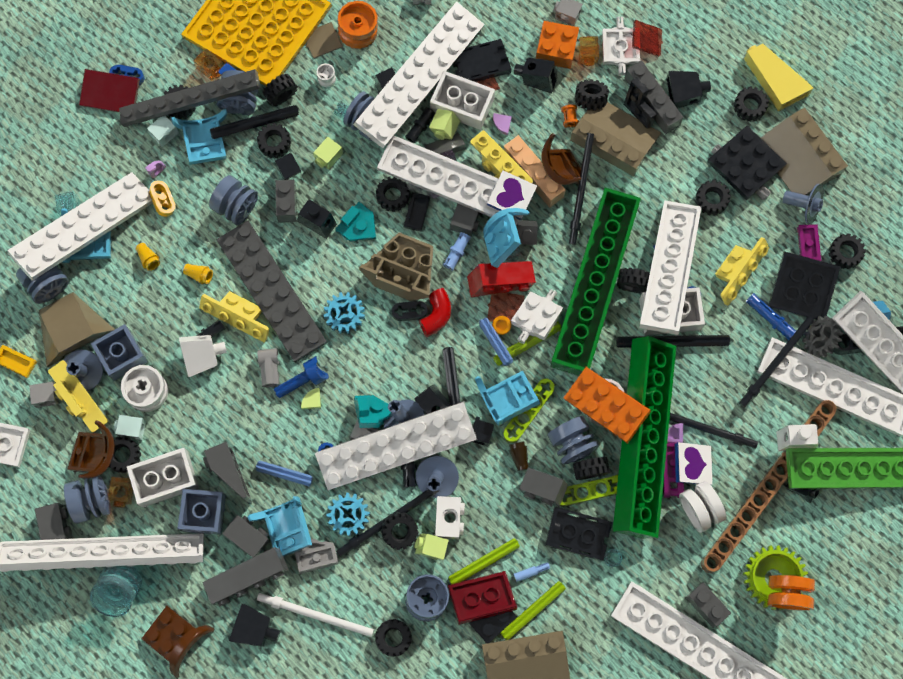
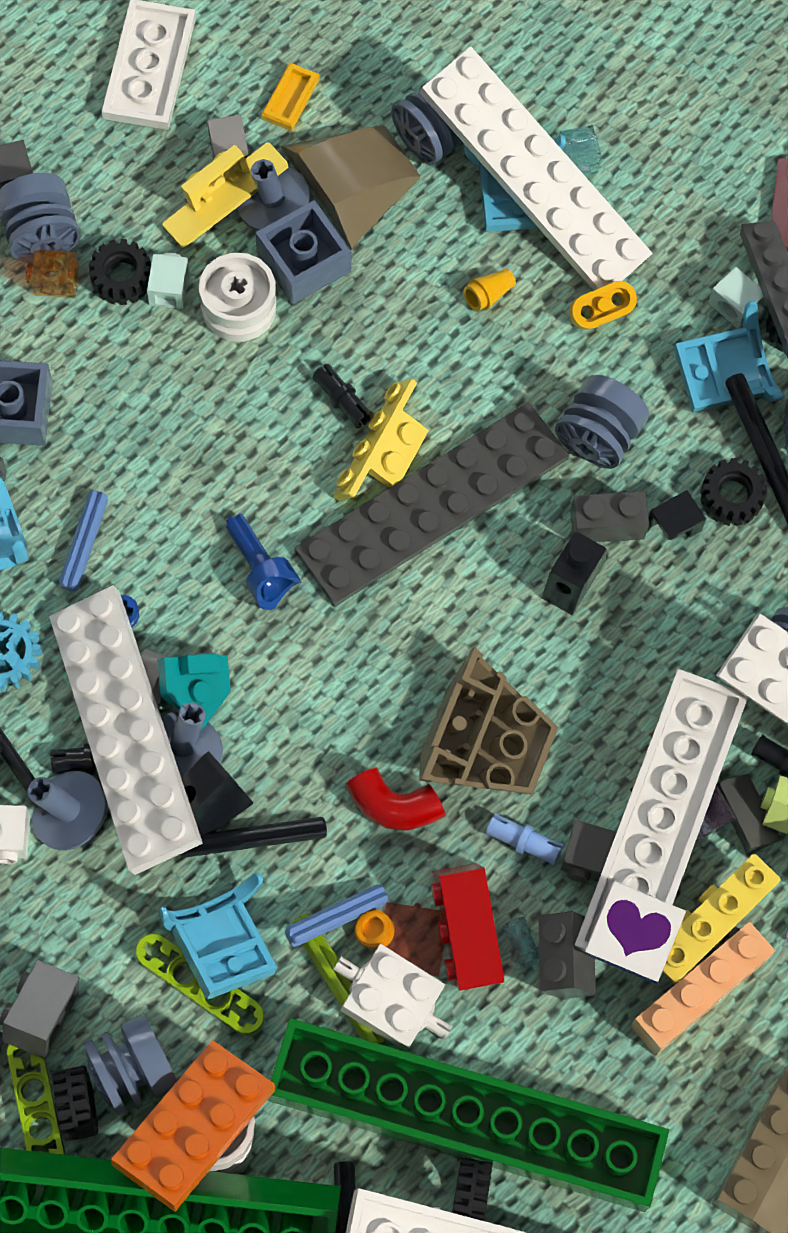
camera: 85 degrees right, 5 degrees down
(92, 452) = (115, 219): reddish brown piece -> none
(155, 168) = (662, 291): lavender tile -> none
(162, 477) = (75, 336): white brick -> none
(200, 353) = (303, 381): white torso -> none
(201, 274) = (460, 377): yellow cone -> none
(224, 464) = (80, 440): dark grey slope -> none
(269, 367) = (291, 503): light grey piece -> none
(311, 399) = (222, 583): yellowish green tile -> none
(327, 153) = (713, 589): yellowish green brick -> none
(340, 319) = (401, 639): medium azure gear -> none
(357, 224) = (573, 652): teal plate -> none
(392, 204) = (625, 694): black tyre -> none
(408, 306) = (408, 753): black beam -> none
(417, 211) = (604, 762): black tile -> none
(483, 432) = (154, 889): black panel -> none
(502, 235) = (547, 911): medium azure piece -> none
(519, 455) = (110, 965): dark brown cone -> none
(560, 164) = (713, 1043): reddish brown piece -> none
(575, 224) = (591, 1077): black bar -> none

